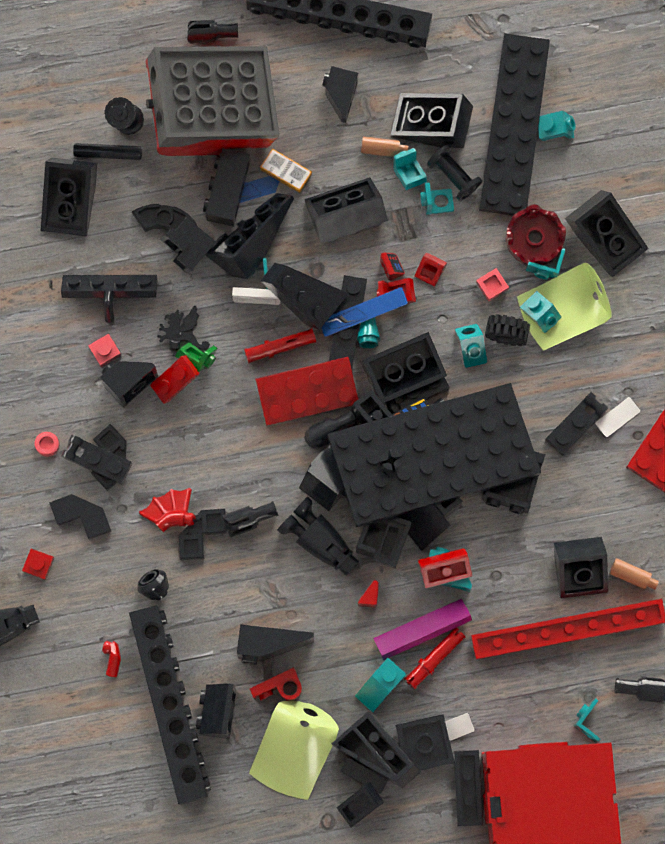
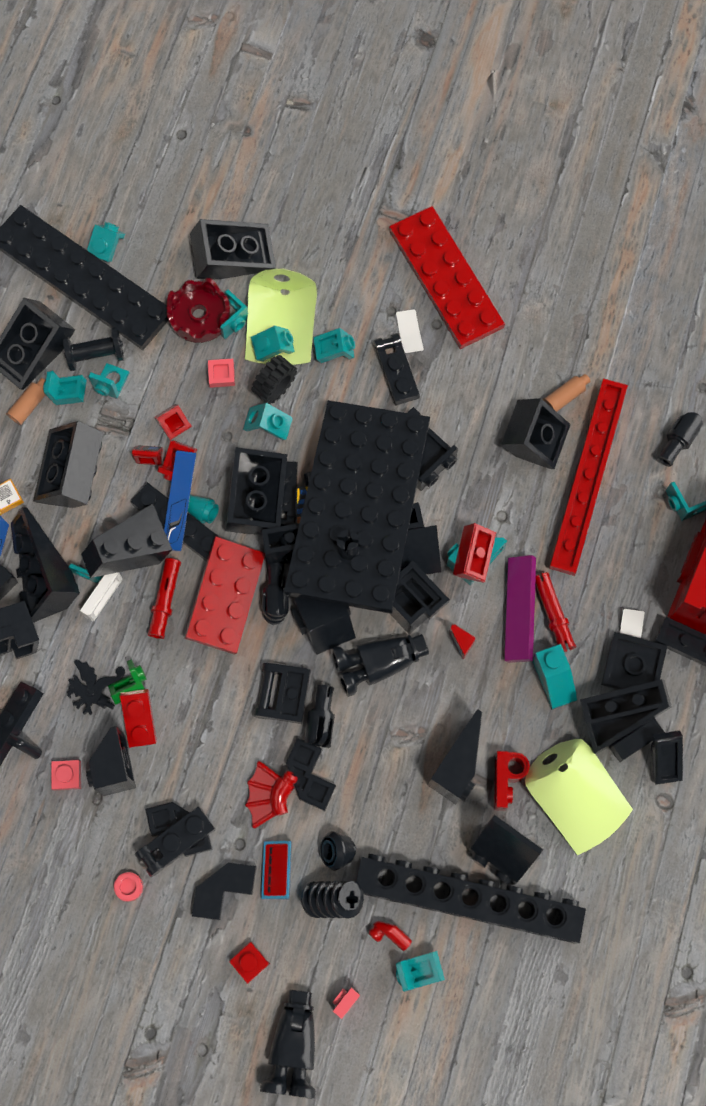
camera: 60 degrees left, 5 degrees down
(45, 649) = (345, 1001): none -> coral plate
(95, 693) = (419, 971): none -> teal bracket
(113, 599) = (332, 899): none -> black piece
(116, 547) = (276, 870): none -> red slope
(256, 485) = (291, 693): none -> black plate
(567, 362) = (334, 345): none -> teal bracket

